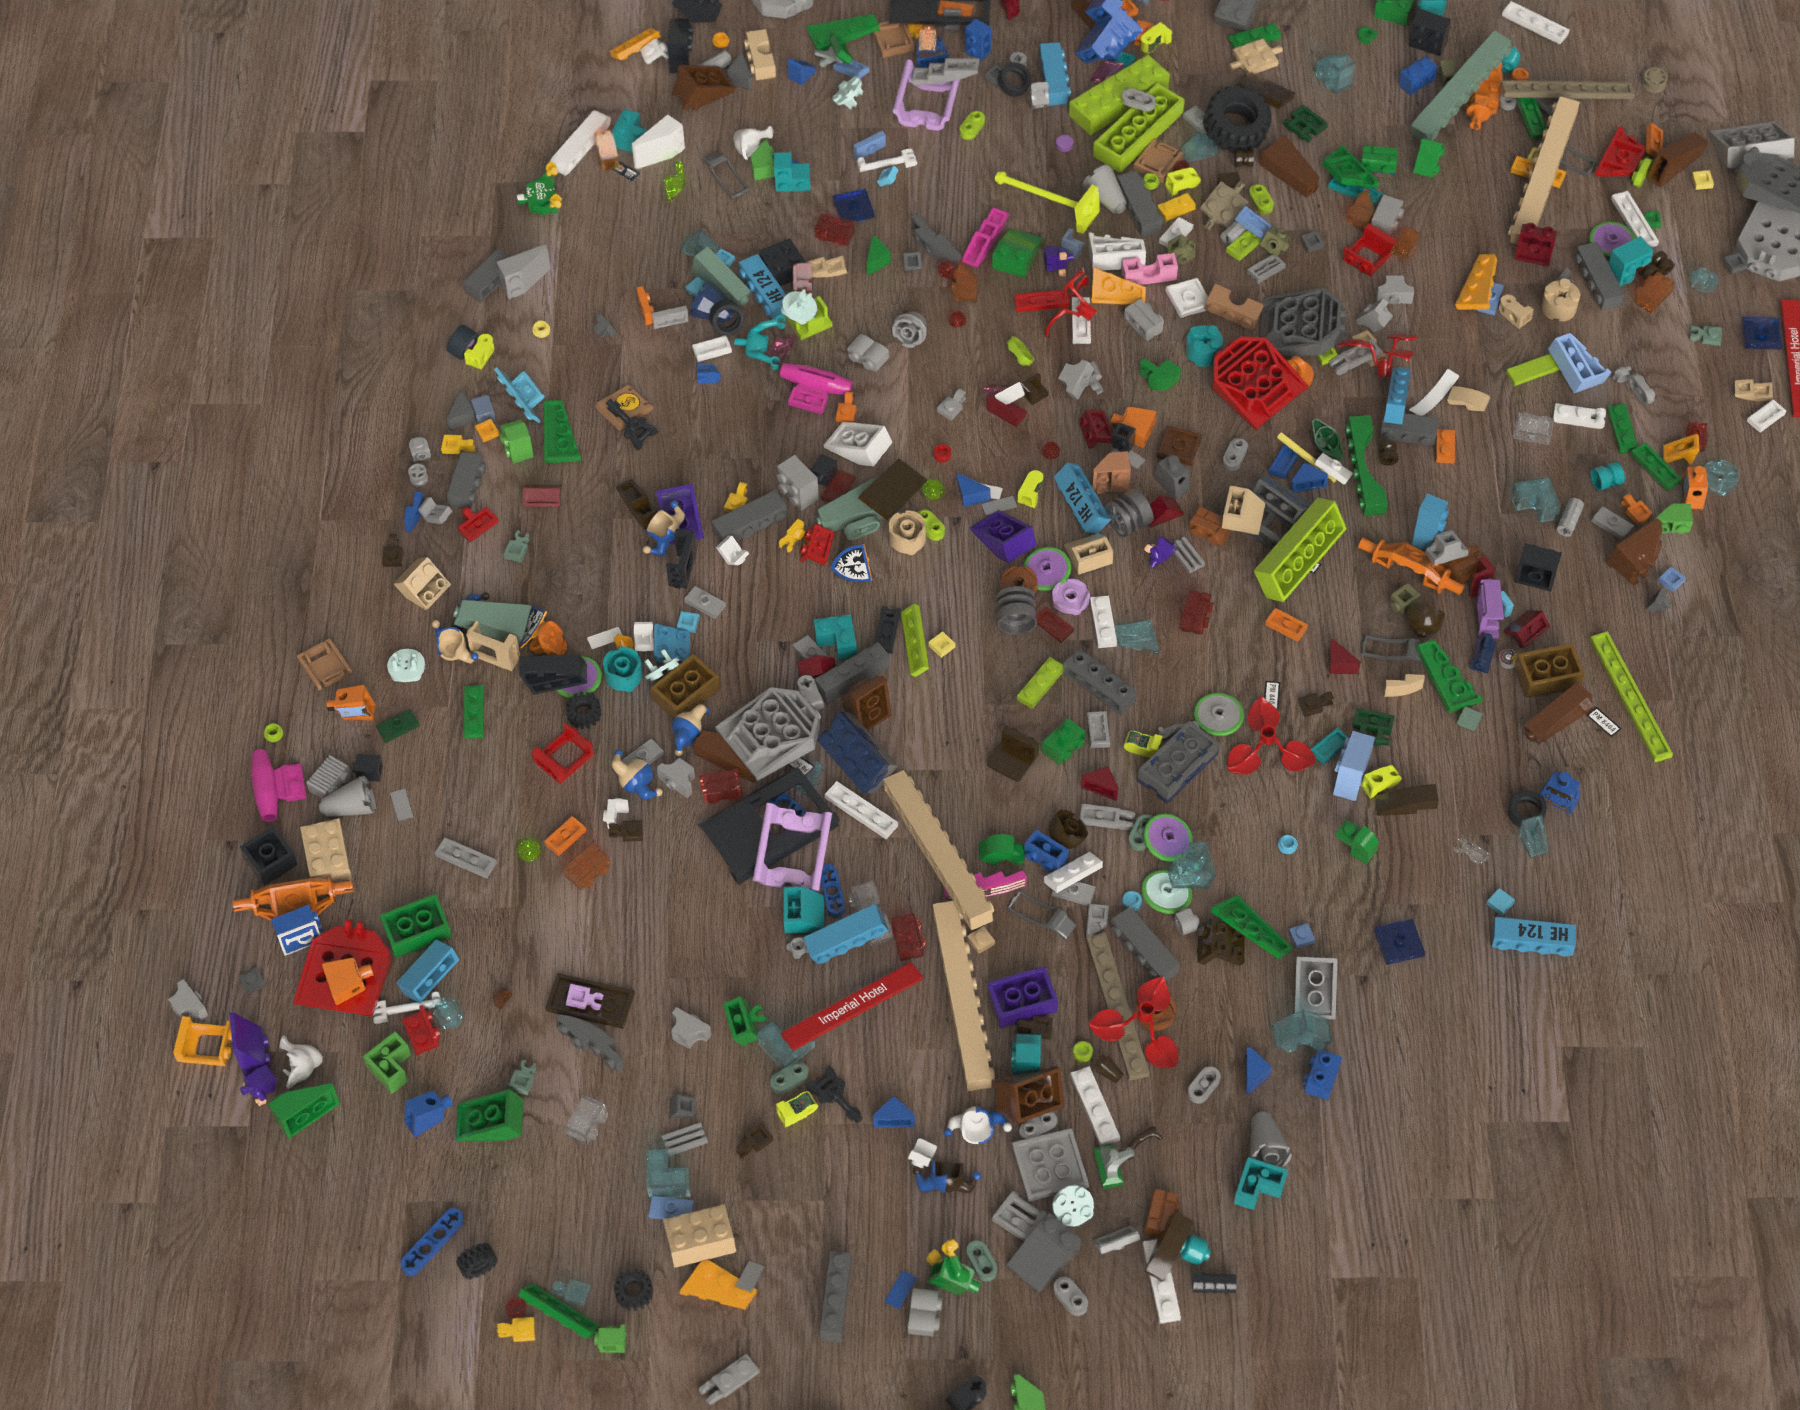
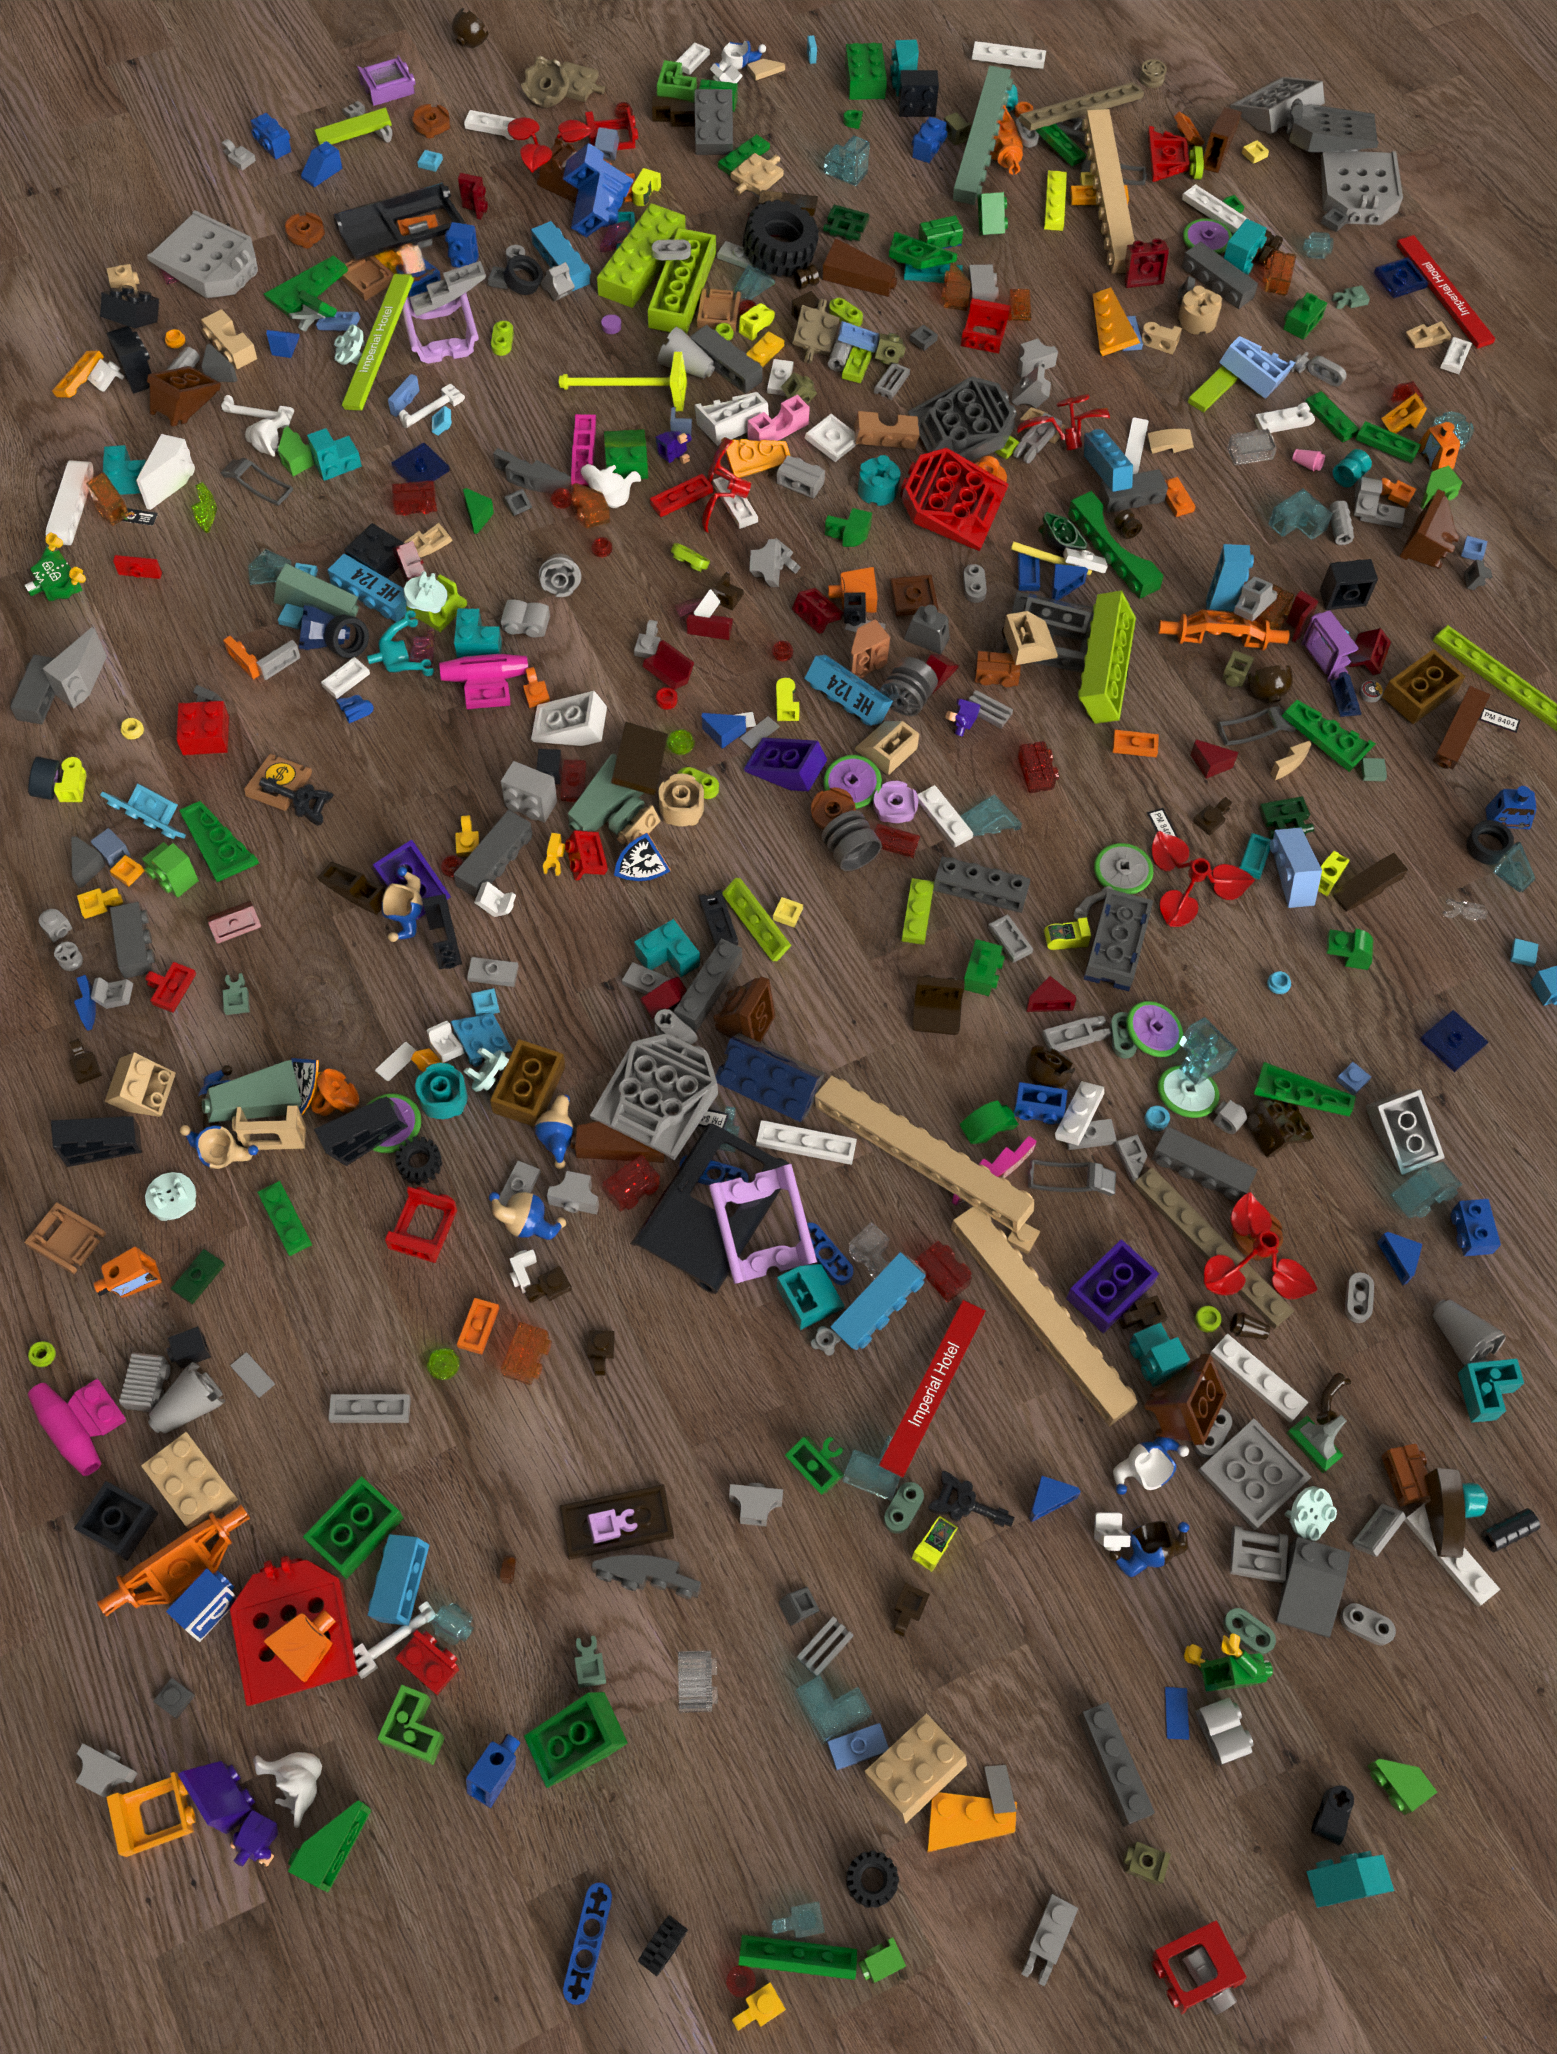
camera: 30 degrees left, 5 degrees up
(374, 606) = (95, 1139): none -> black wedge
(590, 347) = (202, 728): none -> red brick
(604, 209) = (137, 567): none -> red plate
(640, 885) = (601, 1347): none -> dark brown plate
(714, 512) = (448, 862): none -> clear red plate
(734, 108) = (228, 406): none -> white hinge
(821, 352) = (472, 637): none -> teal brick
(823, 1371) = (1159, 1863): none -> olive brick
(870, 96) = (377, 342): none -> lime tile
(870, 539) = (643, 822): none -> tan hinge
(956, 429) = (669, 665): none -> dark red panel
(989, 275) = (612, 485): none -> white piece
(1498, 163) = (1055, 200): none -> neon yellow plate
(1577, 456) = (1310, 459): none -> bright pink cone
(1604, 502) = (1367, 497): none -> light grey brick
(1652, 336) = (1304, 315): none -> green brick

